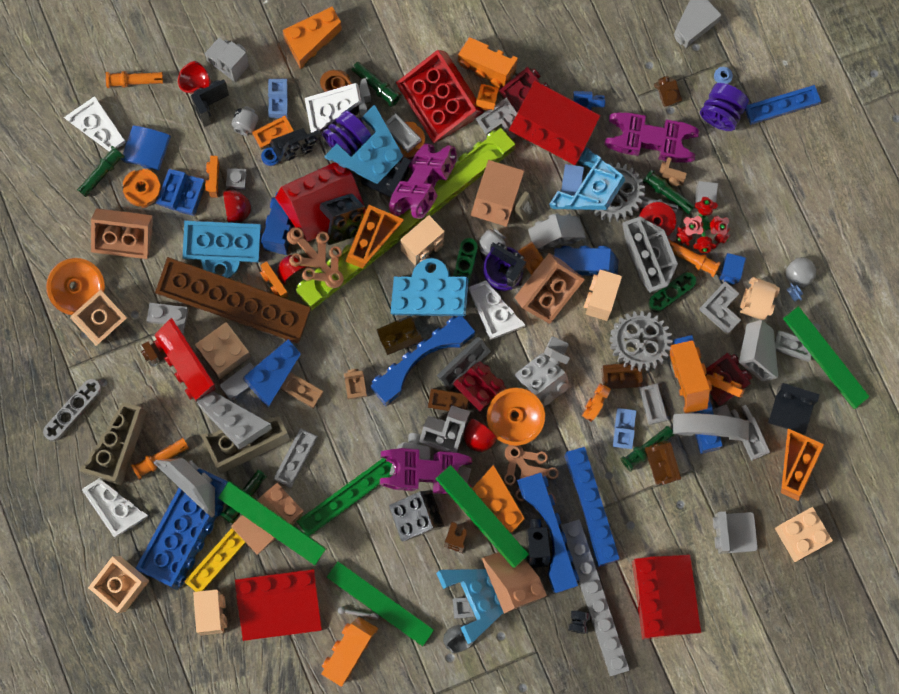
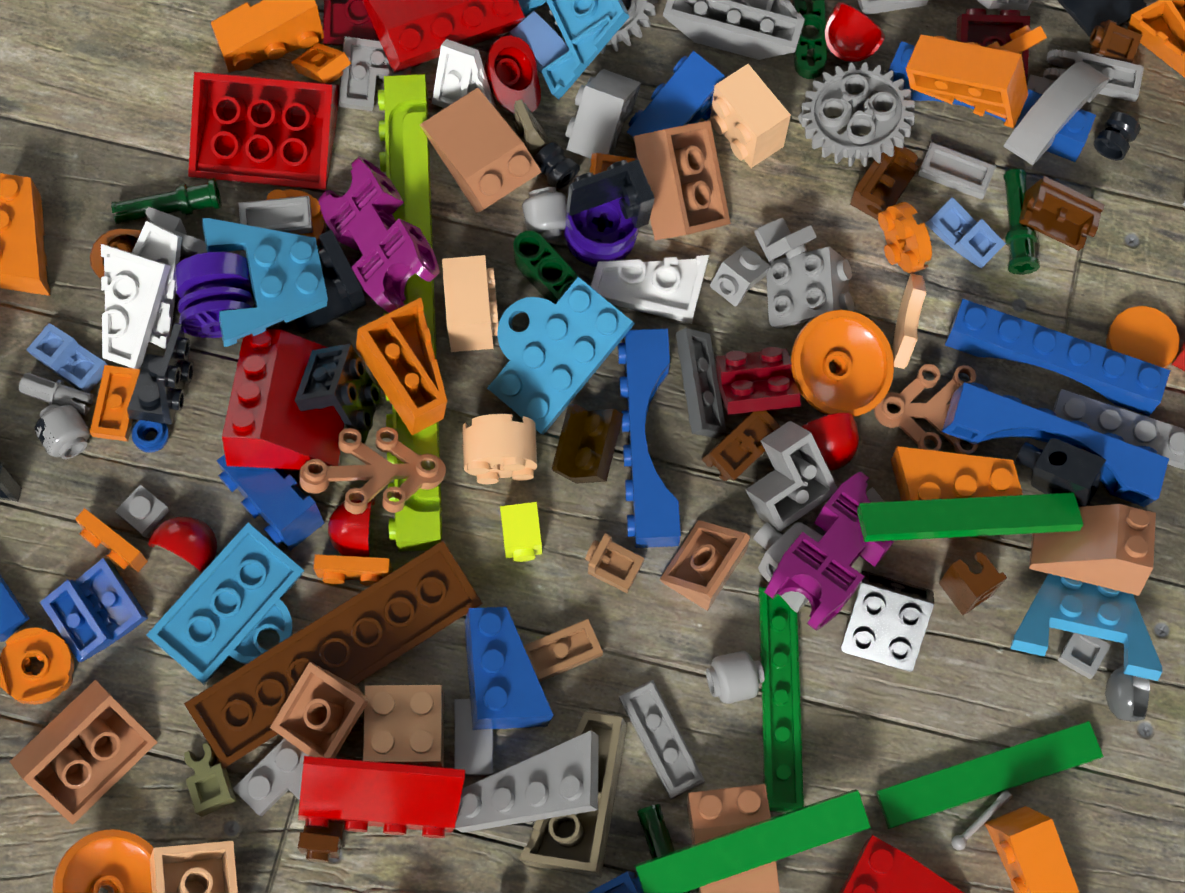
camera: 50 degrees left, 5 degrees down
(144, 292) = (210, 785): none -> olive plate
(202, 312) = (319, 712): none -> nougat slope
(259, 105) = (54, 392): none -> light grey axle
(319, 104) = (132, 301): none -> white wing
(340, 336) = (521, 531): none -> neon yellow brick
(342, 468) = (734, 677): none -> light grey head
(368, 301) = (500, 448): none -> light nougat brick
(384, 422) = (705, 562): none -> nougat slope
(517, 230) = (556, 167): none -> black wheel
(525, 159) = (458, 74): none -> white wing
(528, 344) = (739, 274): none -> light grey bracket
(545, 181) = (513, 73): none -> red piece
(560, 431) = (907, 321): none -> light nougat tile
(632, 540) = (1144, 335): none -> orange tile
(683, 311) = (852, 33): none -> red helmet
(724, 463) = (1115, 139): none -> black wheel
(771, 431) = (1114, 41): none -> reddish brown bracket

